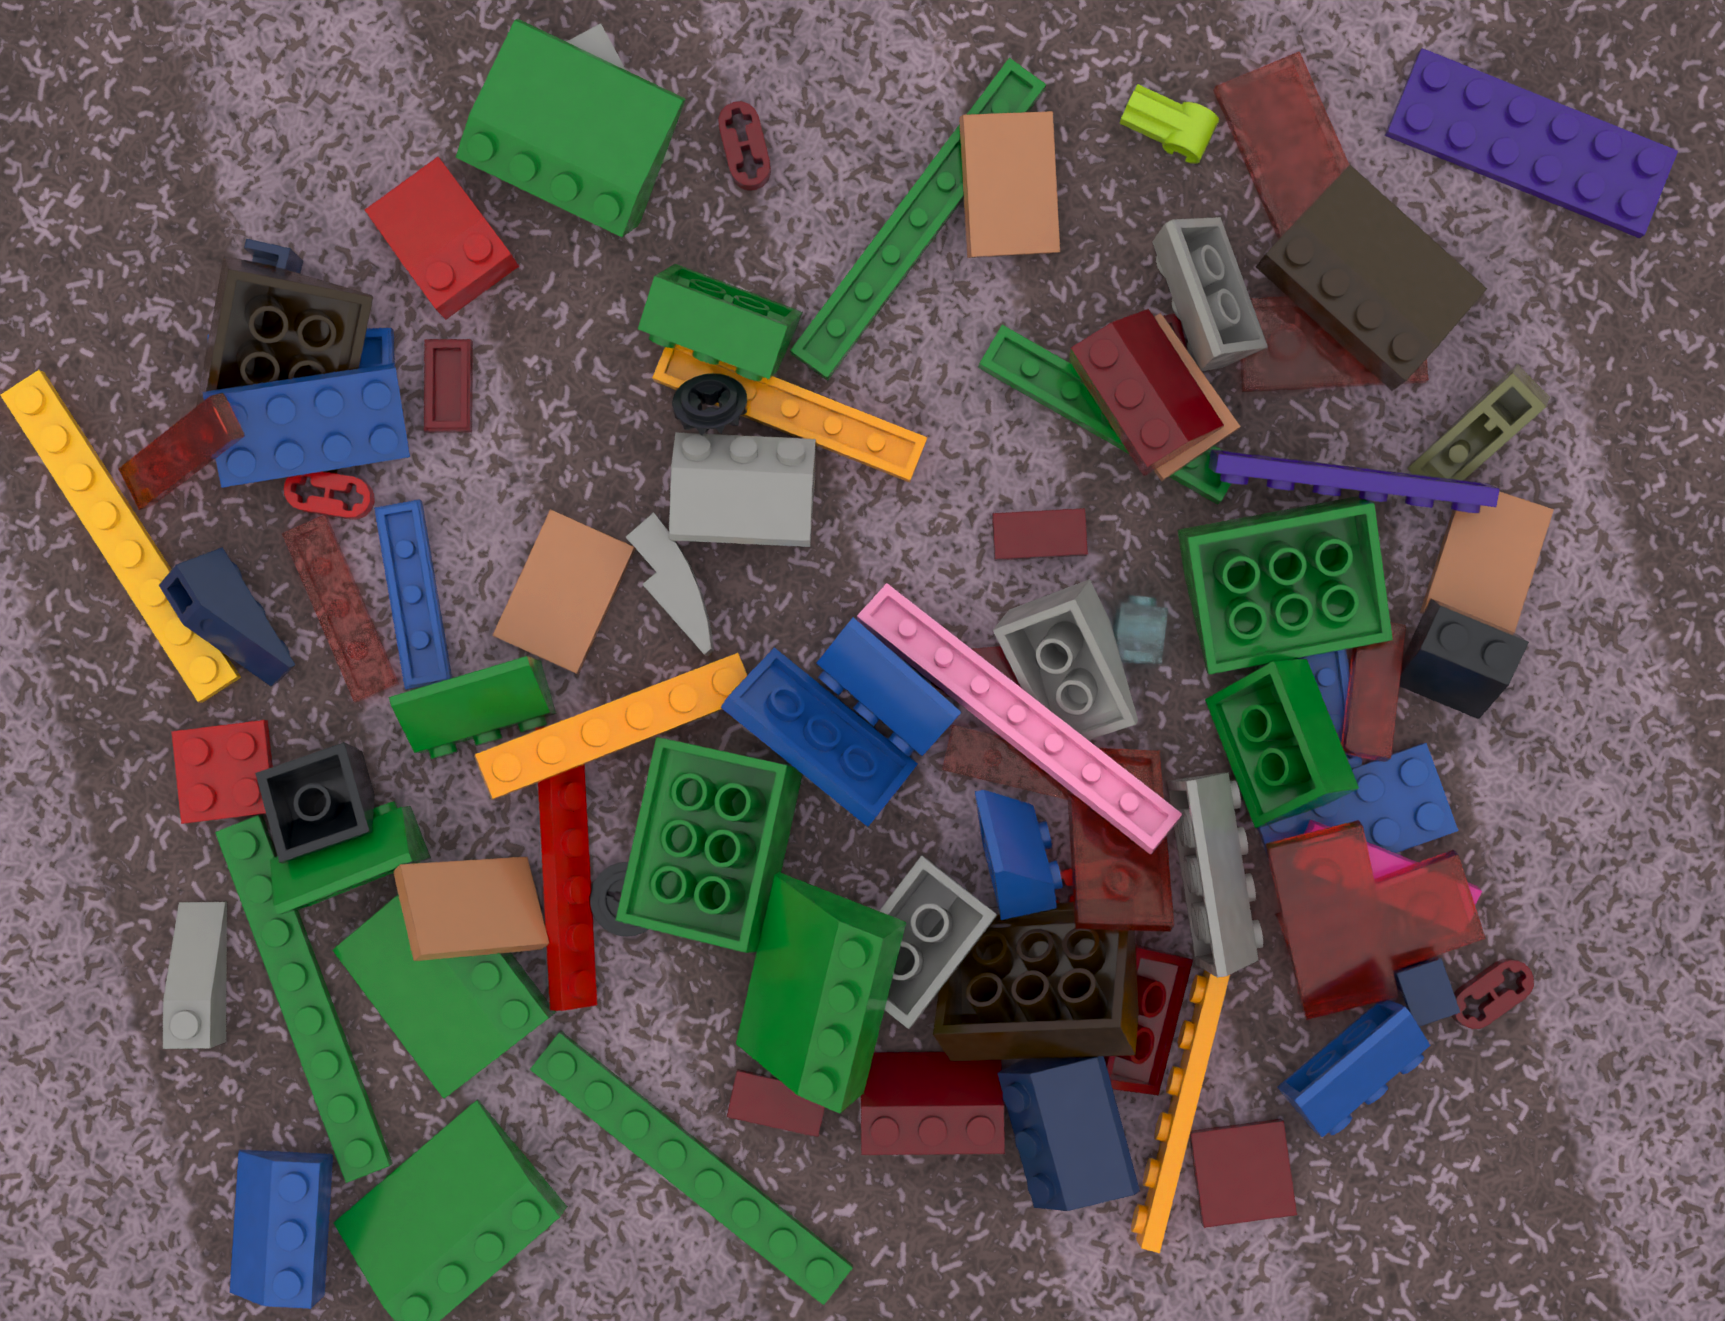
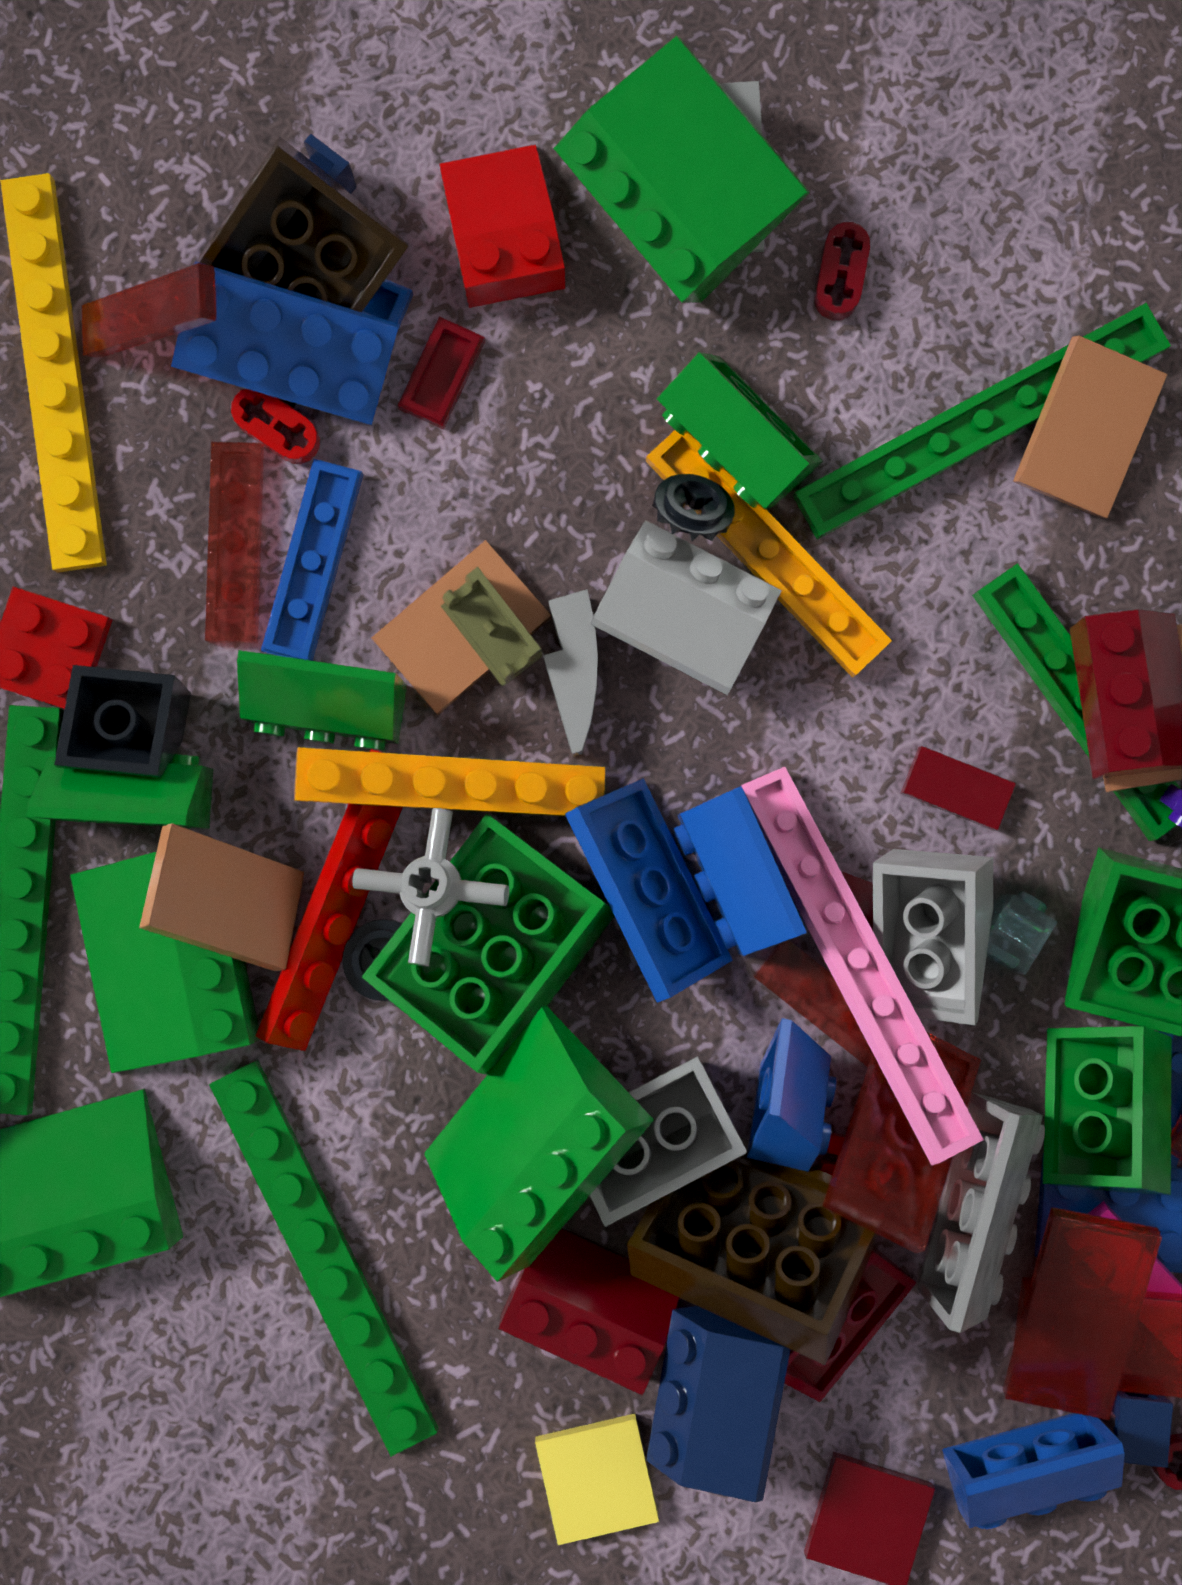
camera: 20 degrees right, 0 degrees up
(222, 611) = (115, 485): dark blue slope -> none
(588, 581) = (491, 627): none -> olive hinge
(650, 828) = (439, 902): none -> light grey bar
(772, 1104) = (428, 1227): dark red tile -> none
(1002, 1244) = (596, 1479): none -> light yellow tile
(1175, 1126) = (827, 1442): light orange plate -> none

